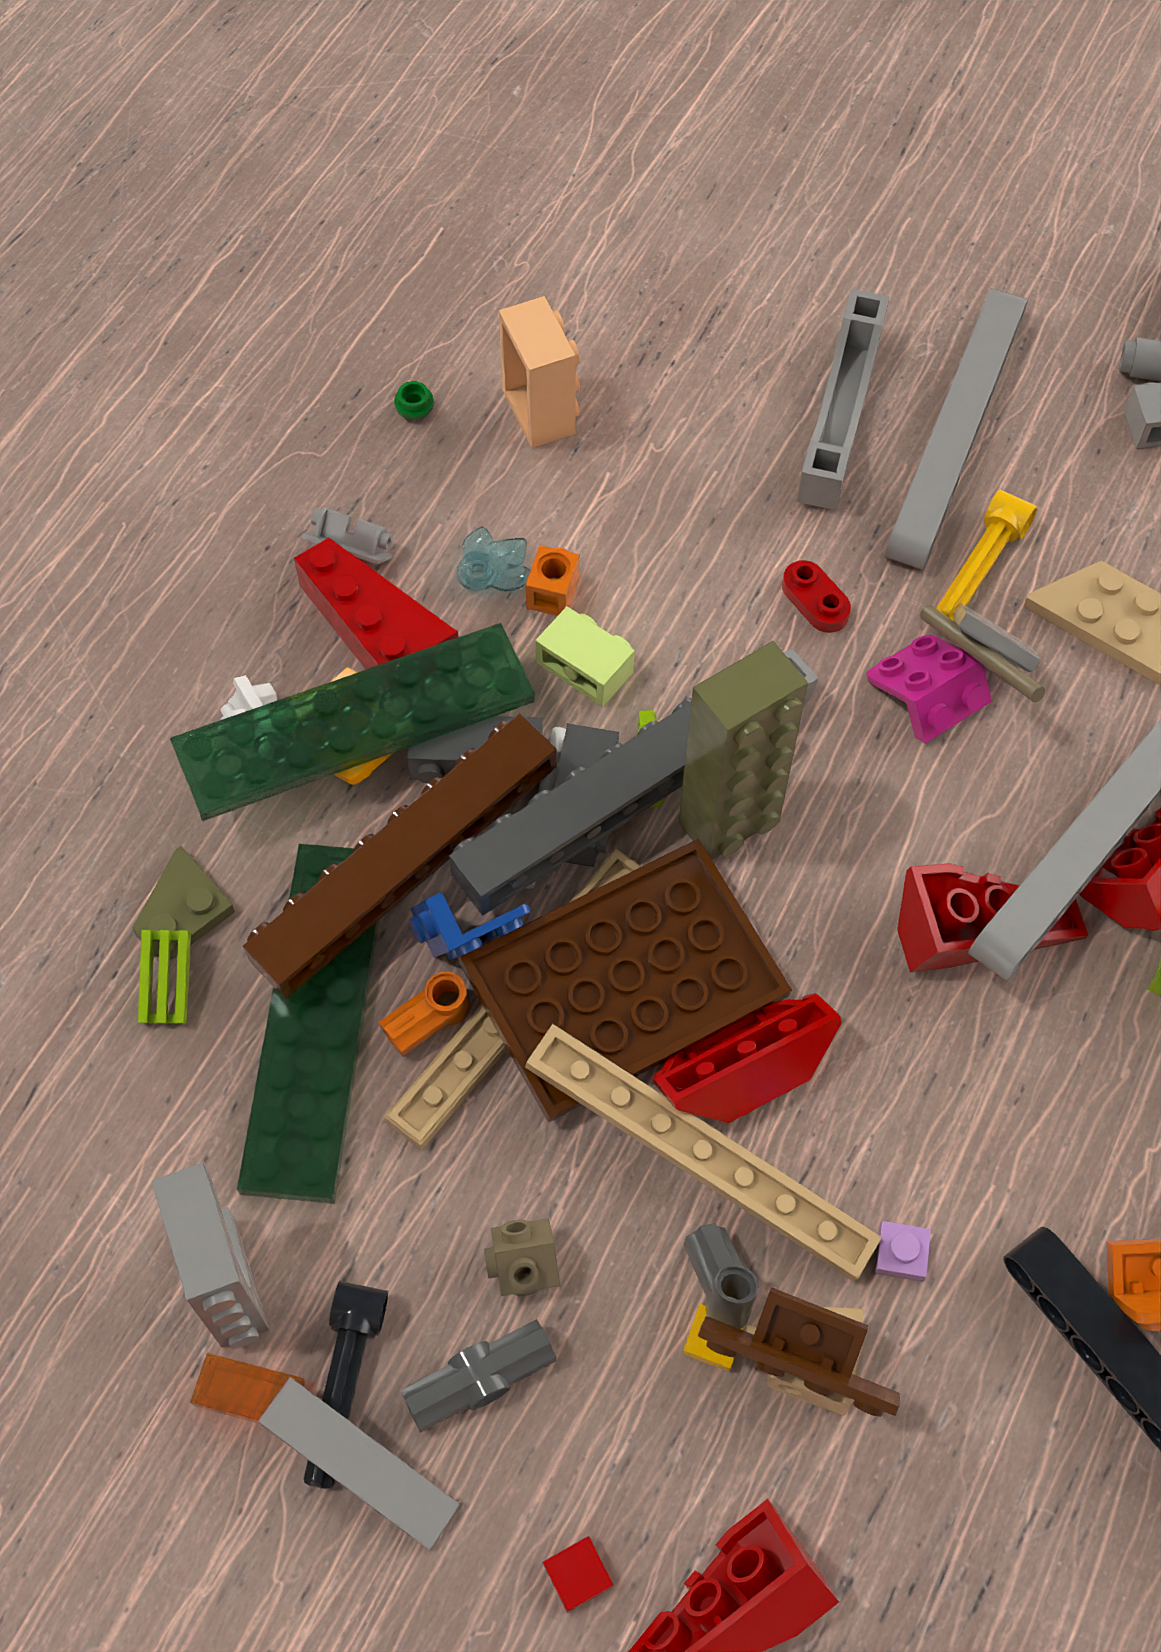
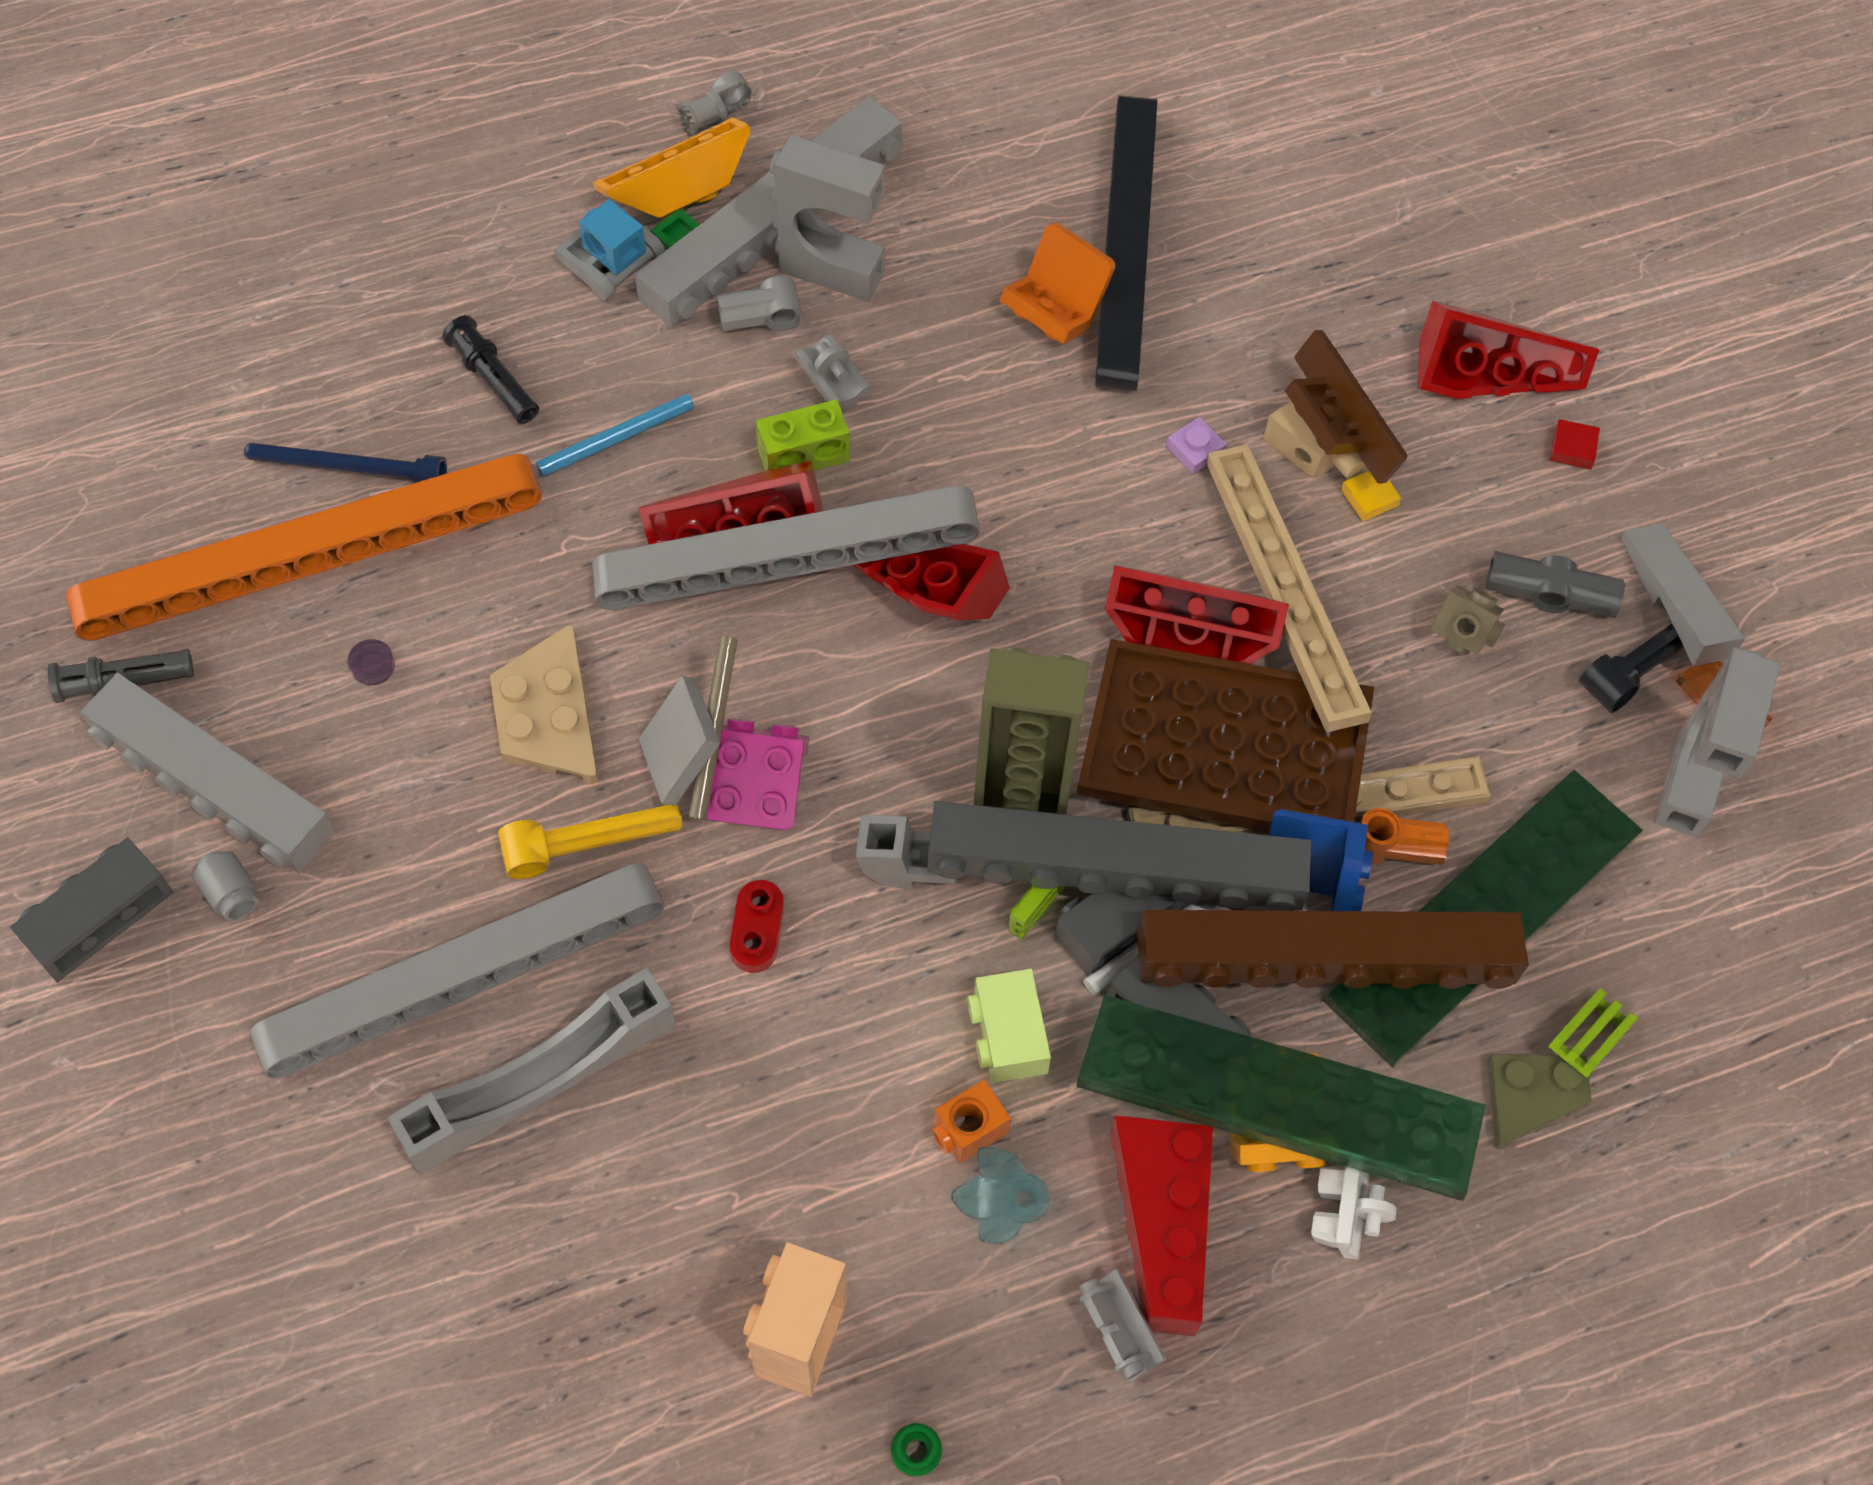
camera: 140 degrees left, 0 degrees up
(721, 1275) = (1338, 510): dark grey piece -> none

